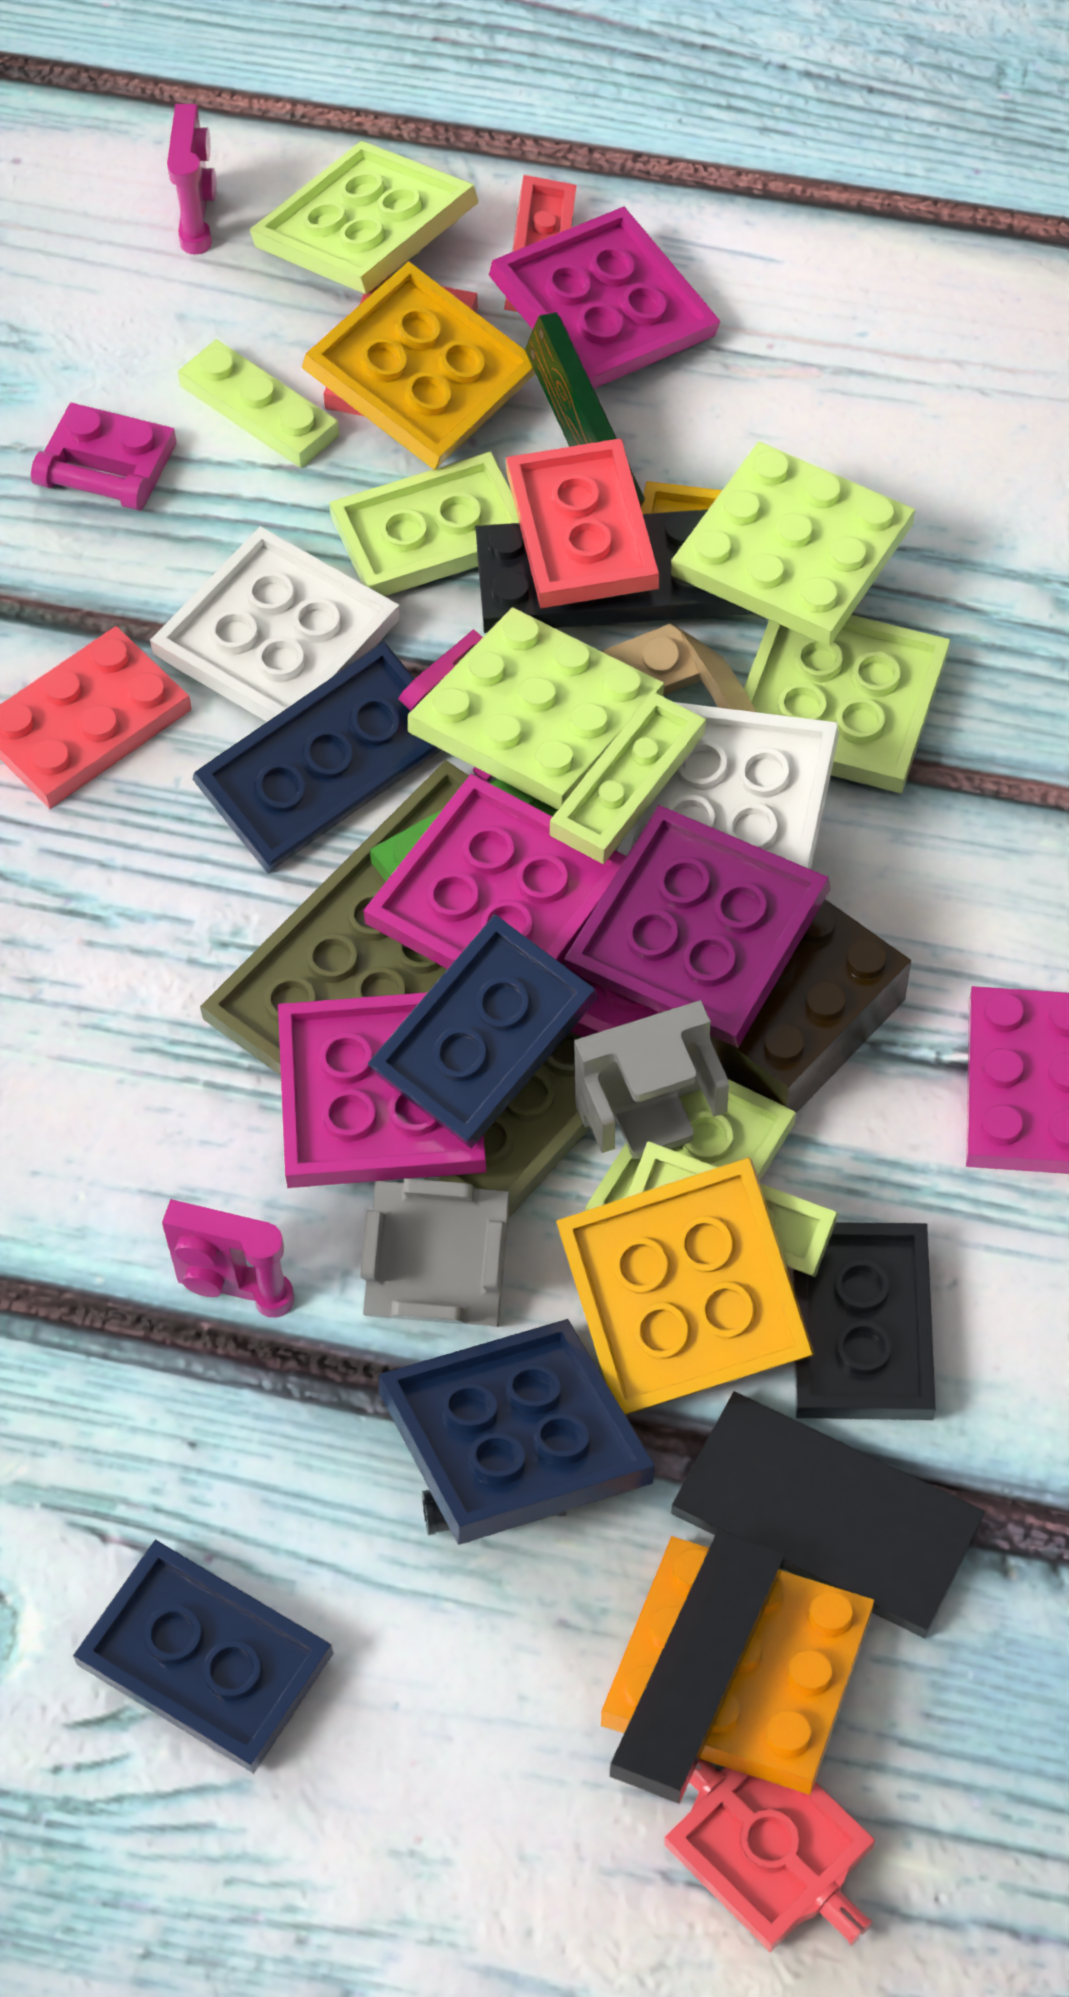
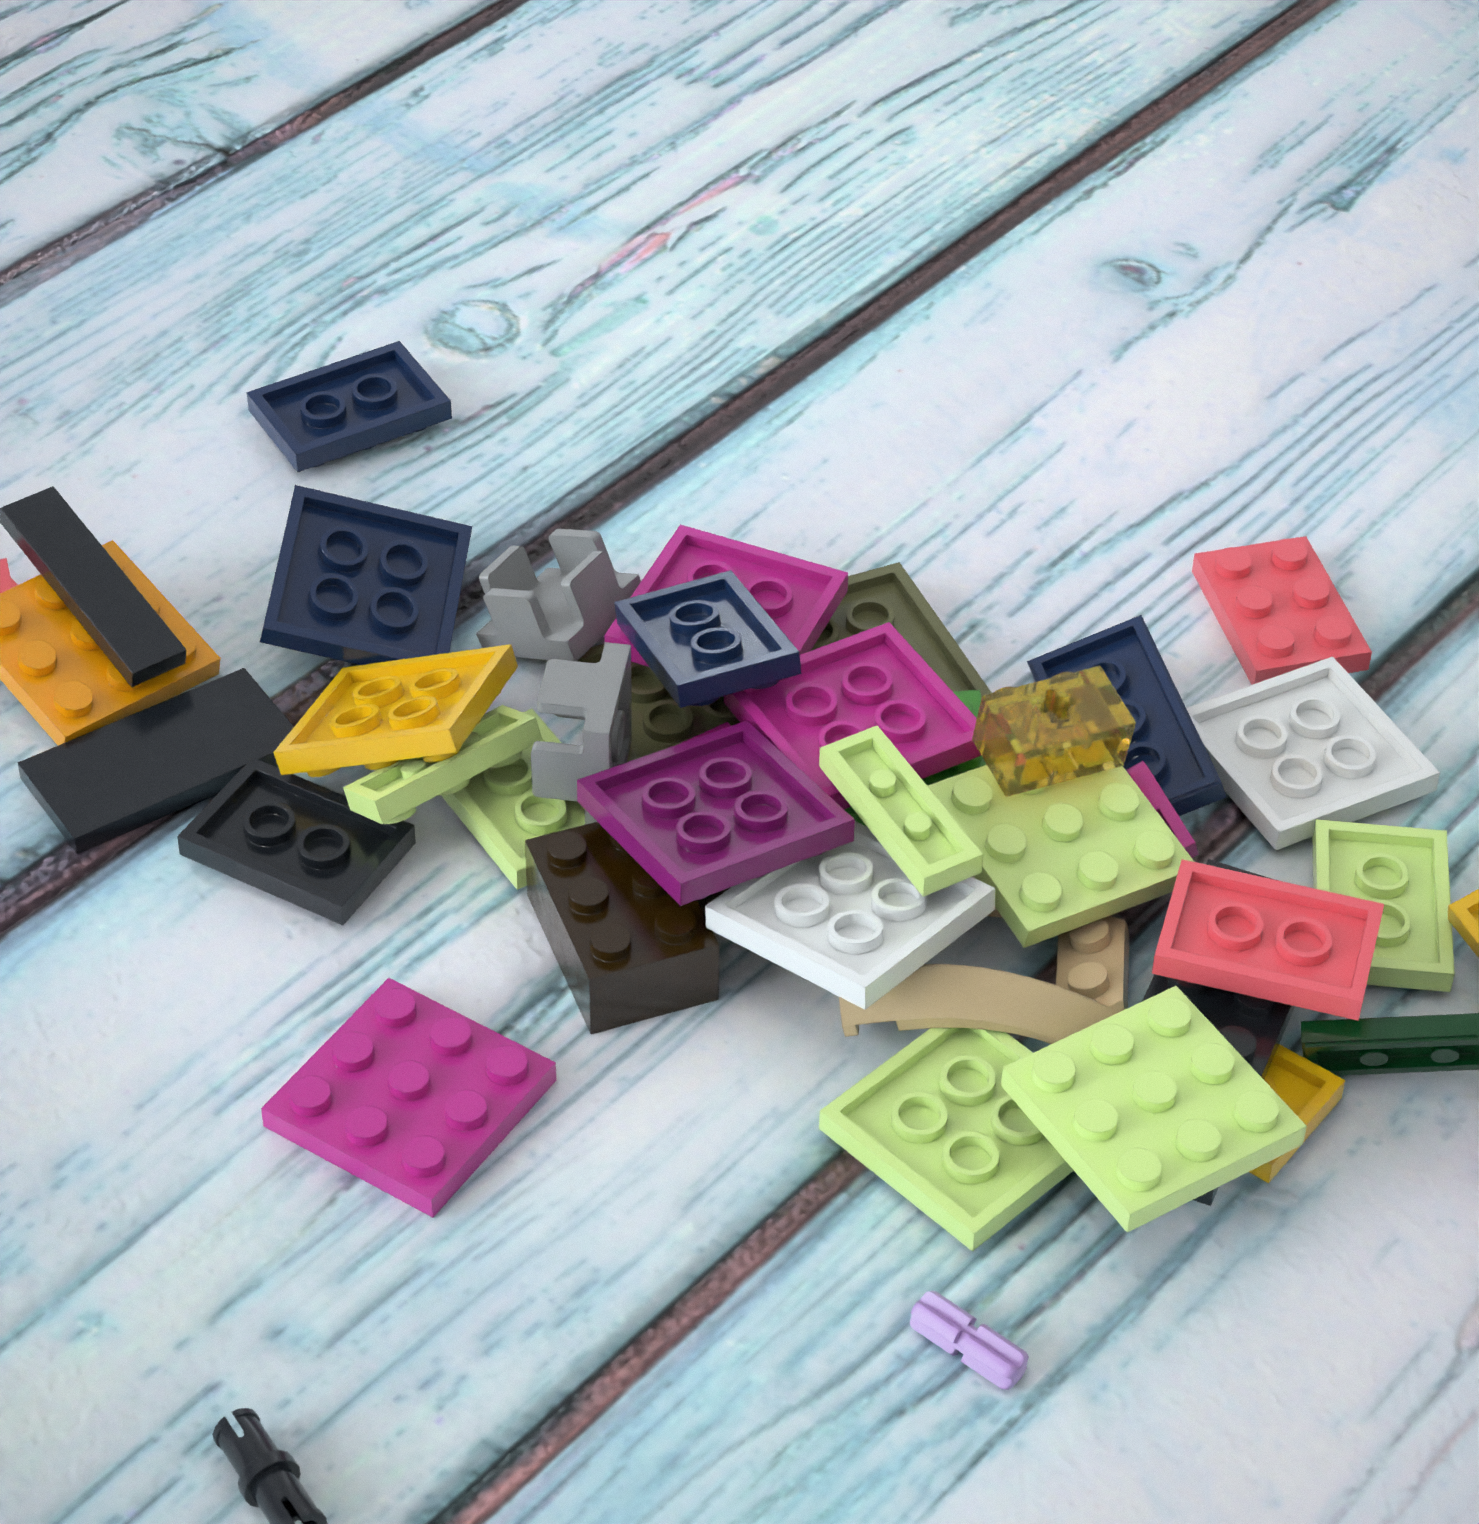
camera: 115 degrees right, 15 degrees down
(212, 1252) = (654, 482): dark pink plate -> none
(472, 701) = (1053, 730): none -> clear yellow brick
(1030, 622) = (982, 1347): none -> lavender piece

